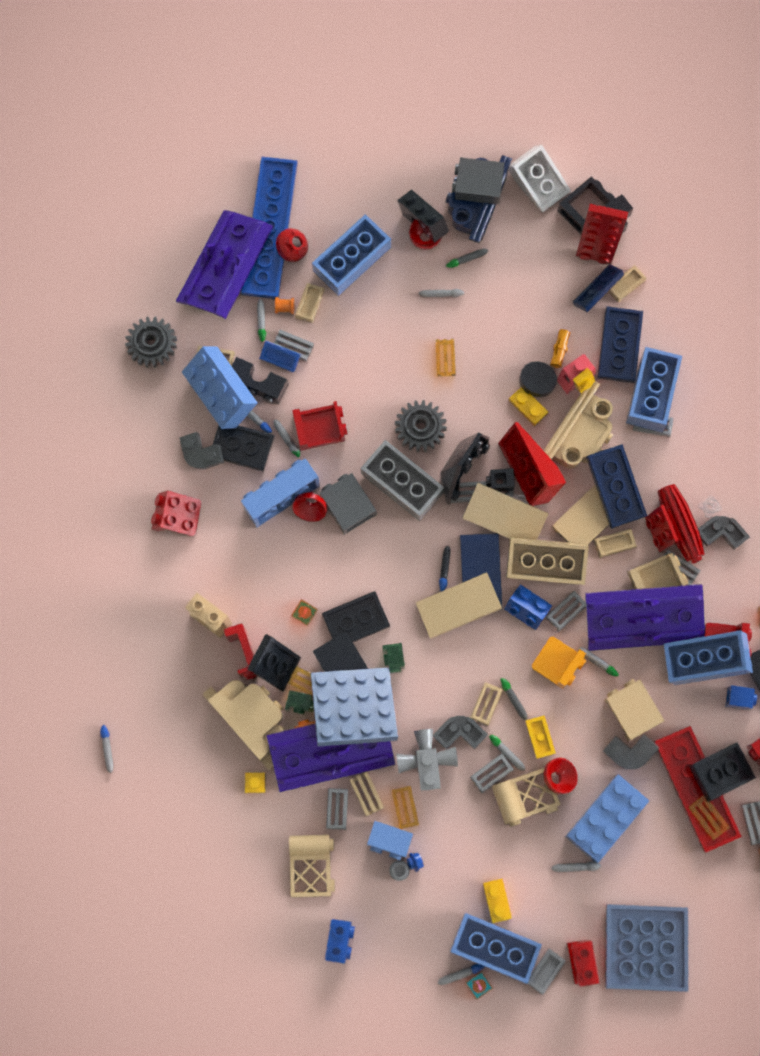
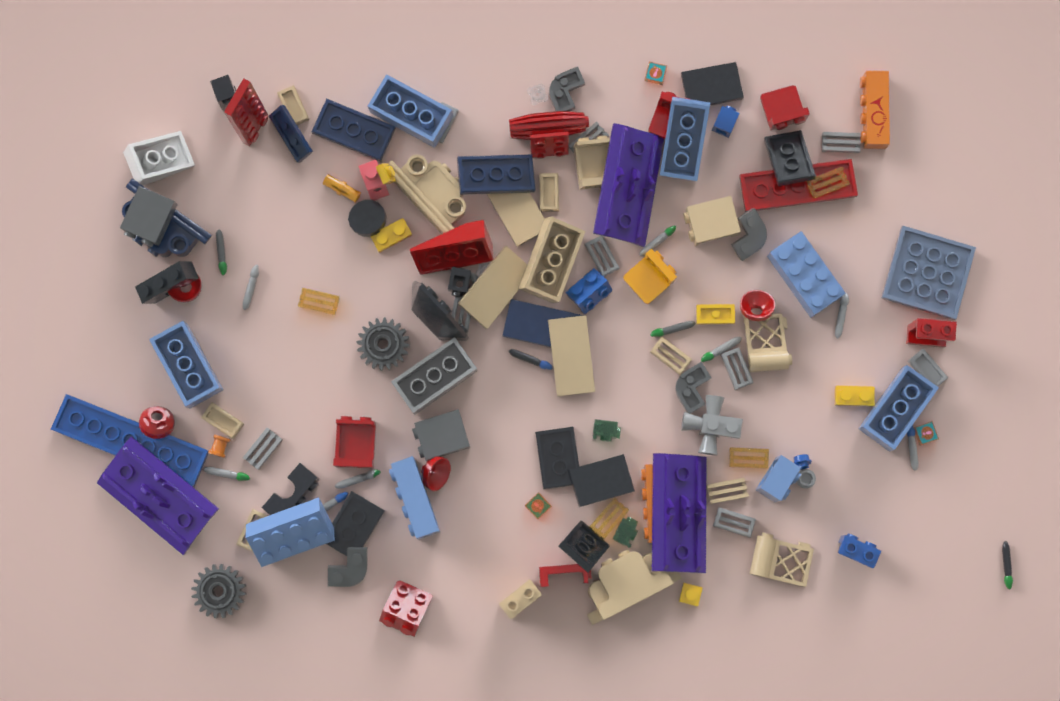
camera: 80 degrees left, 5 degrees up
(279, 356) = (271, 464): blue tile -> none
(353, 707) = (646, 480): plate -> none
(571, 214) = (209, 136): black window -> none

